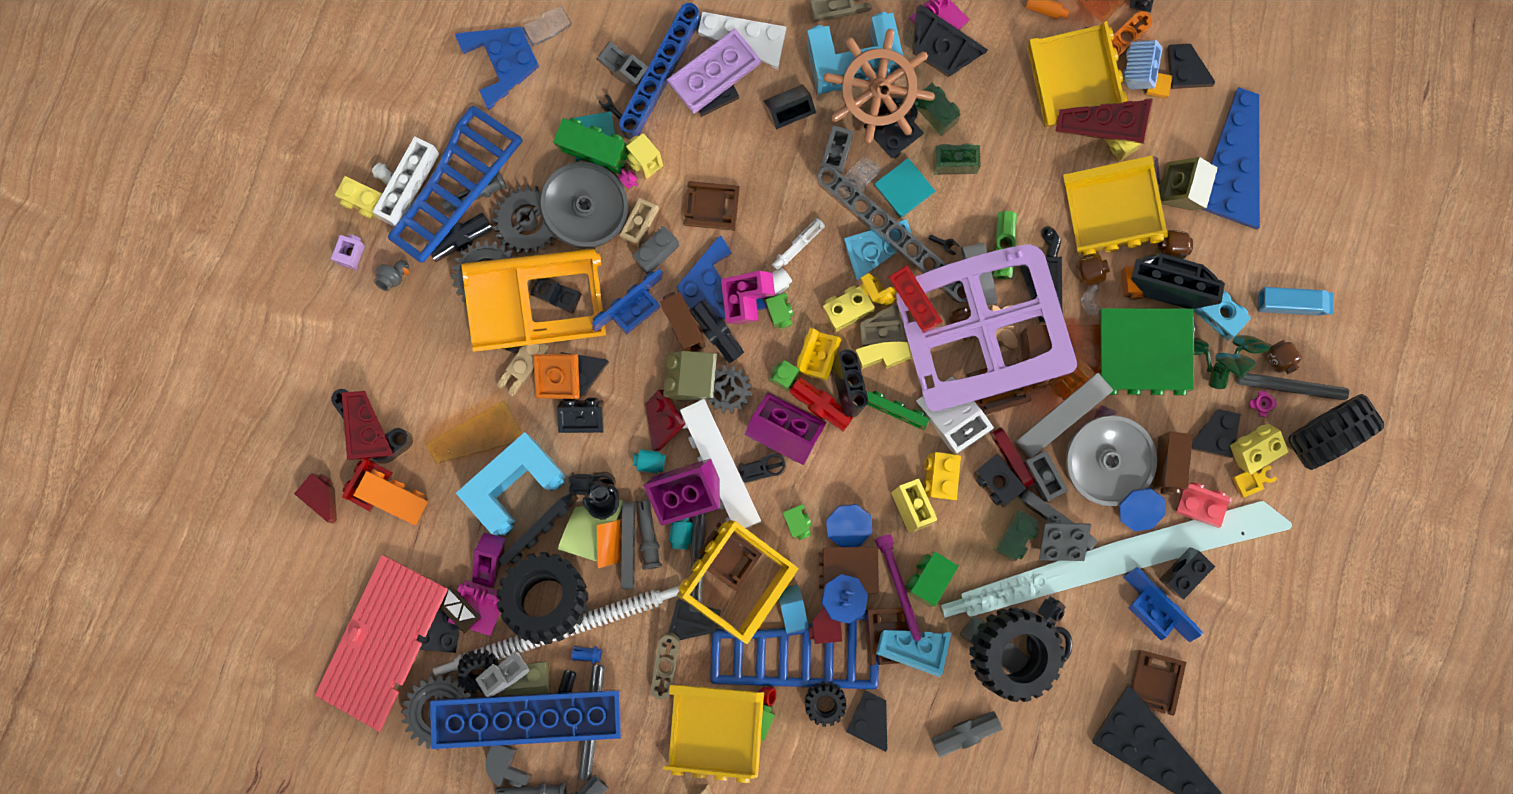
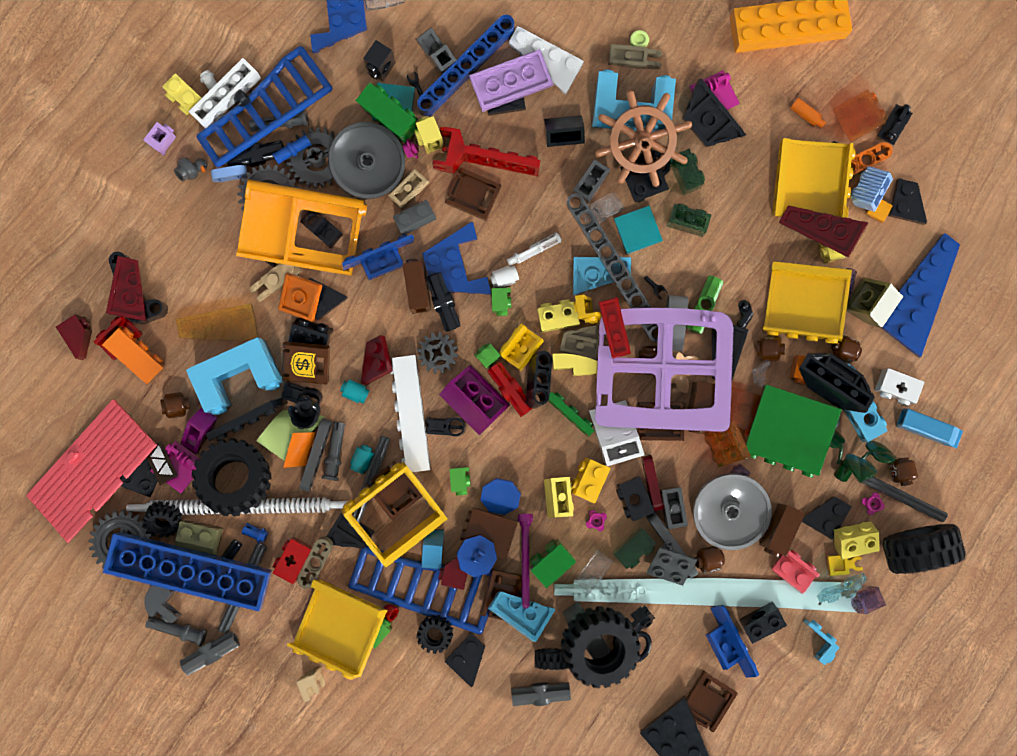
camera: 10 degrees right, 5 degrees up
(426, 179) = (242, 97): none -> black hinge
(436, 266) = (229, 173): none -> light blue beam
(453, 539) = (174, 405): none -> reddish brown head
(498, 218) = (291, 149): none -> blue pin
(502, 676) = (177, 531): light grey slope -> none
(564, 94) = (379, 60): none -> black brick
(580, 446) = (300, 362): none -> reddish brown container
(642, 685) = (282, 565): none -> red brick
(684, 492) = (374, 427): magenta slope -> none
(689, 375) = (409, 332): olive slope -> none
(716, 160) = (491, 157): none -> red hinge
(741, 295) = (472, 278): dark pink brick -> none
(964, 689) = (549, 659): none -> black tyre
(969, 515) = (601, 520): none -> dark pink plate
(980, 576) = (594, 571): none -> clear slope
(1064, 415) = (705, 463): light grey beam -> none
(1105, 522) = (710, 559): none -> reddish brown head
(1142, 509) = (744, 559): blue piece -> none
(1257, 262) = (909, 387): none -> white brick
(1268, 504) = (847, 588): none -> clear light blue plate
(1269, 585) = (828, 650): none -> medium azure bracket
(1295, 511) = (868, 600): none -> clear purple brick

